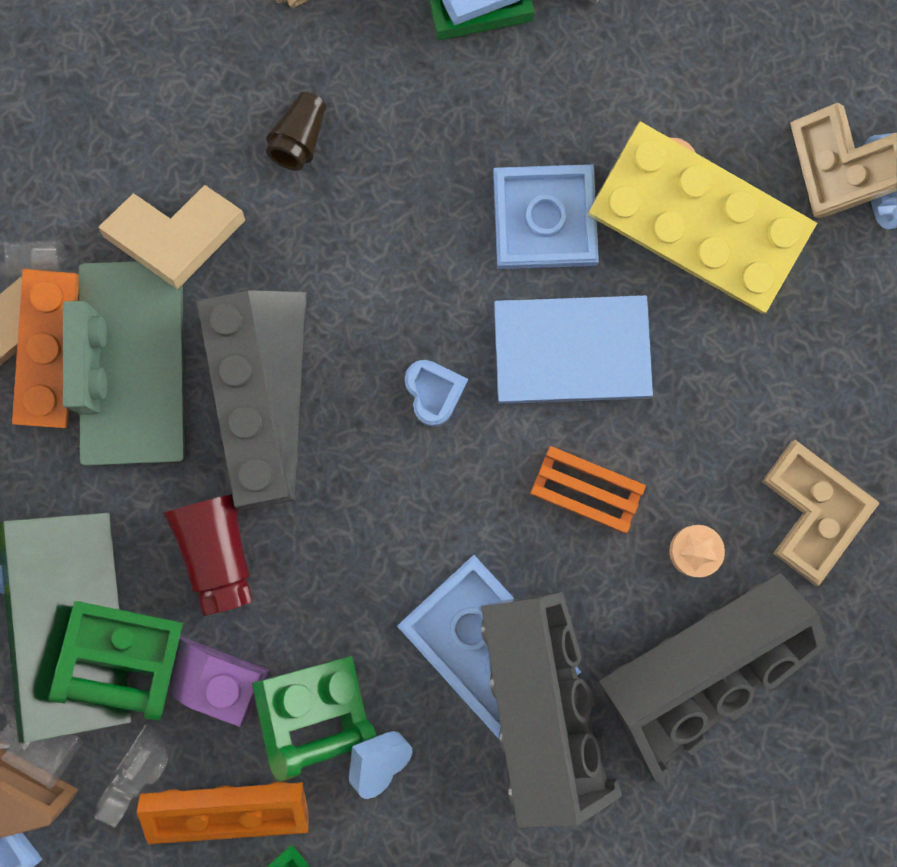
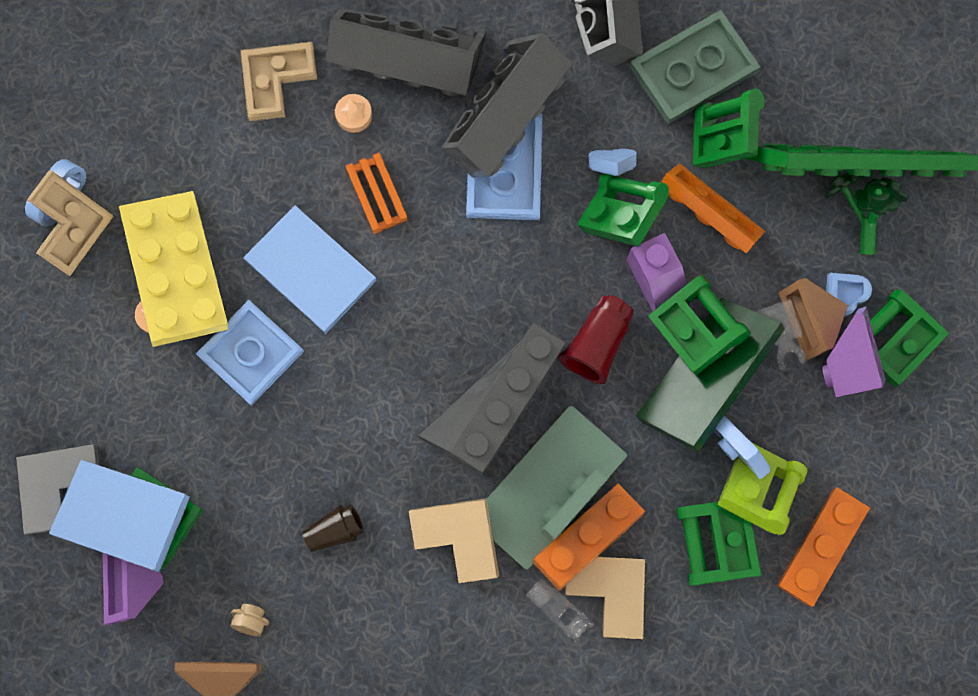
camera: 140 degrees left, 5 degrees down
(140, 765) = (738, 268): clear plate -> none
(434, 391) = (403, 316): light blue tile -> none

